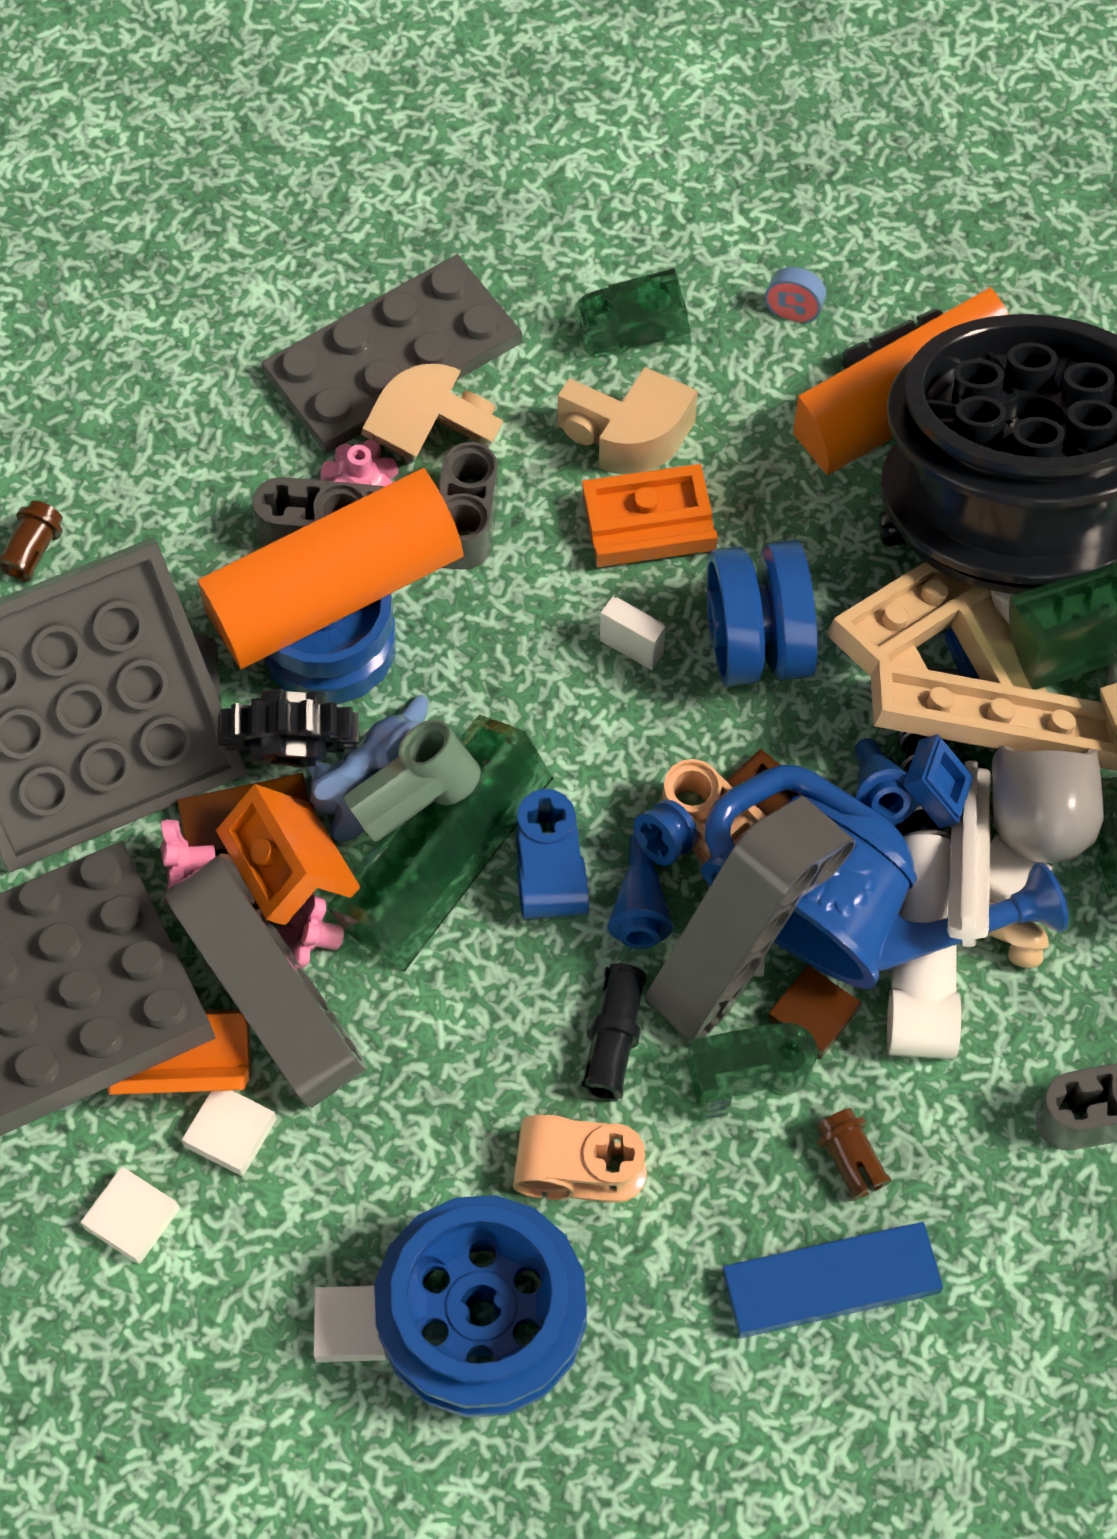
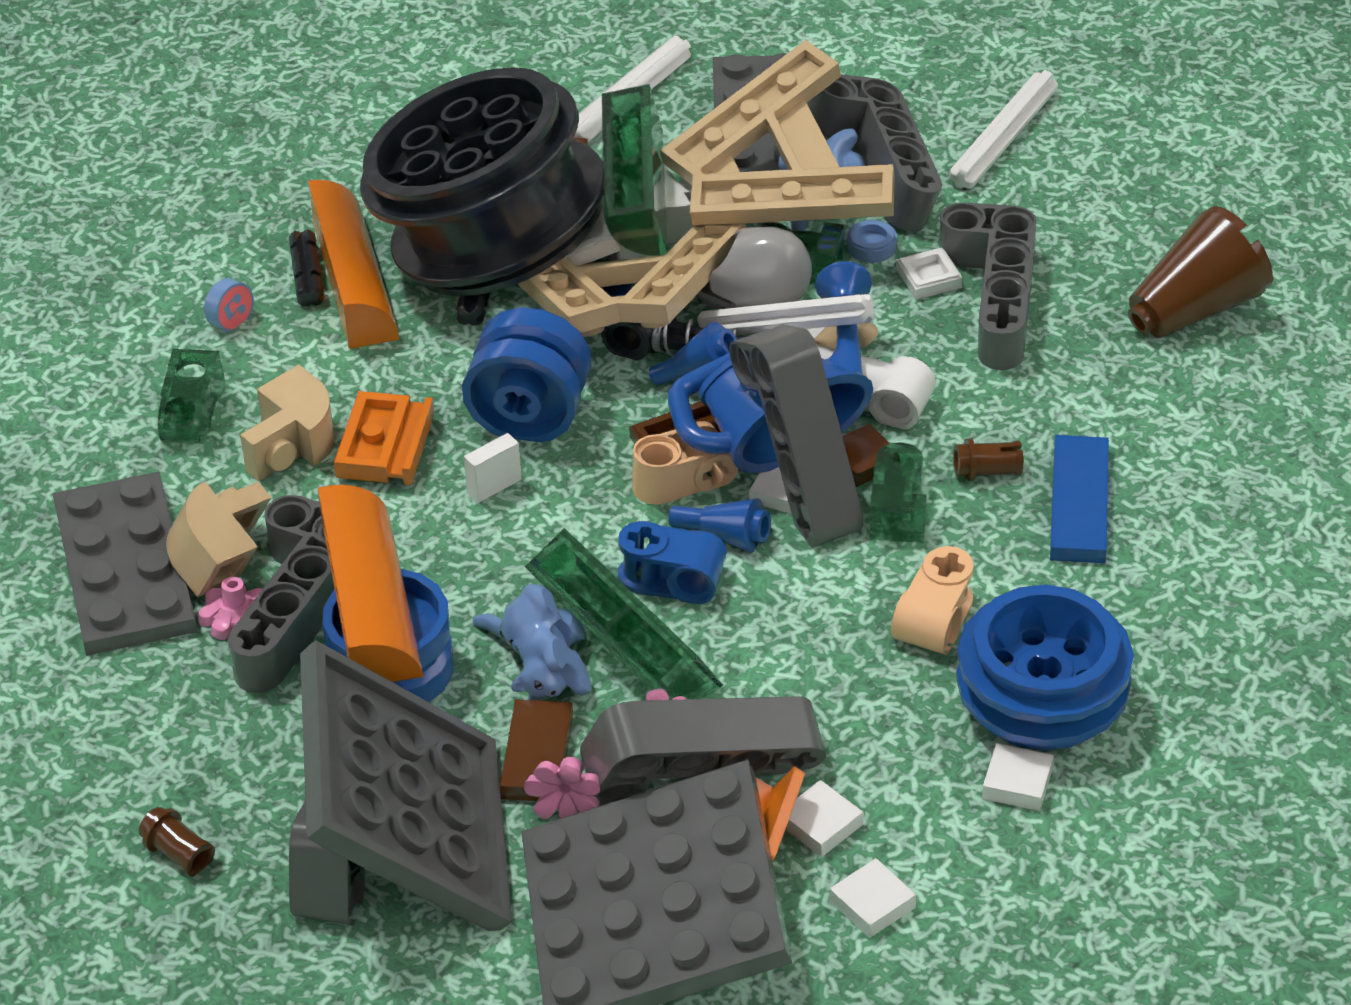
camera: 70 degrees left, 20 degrees down
(283, 852) = (576, 705): orange panel -> none
(288, 728) = (491, 664): black gear -> none
(429, 769) = (580, 601): sand green piece -> none
(613, 1032) = (836, 563): black pin -> none
(665, 832) = (701, 486): blue bush -> none
(938, 781) = (722, 313): blue tile -> none

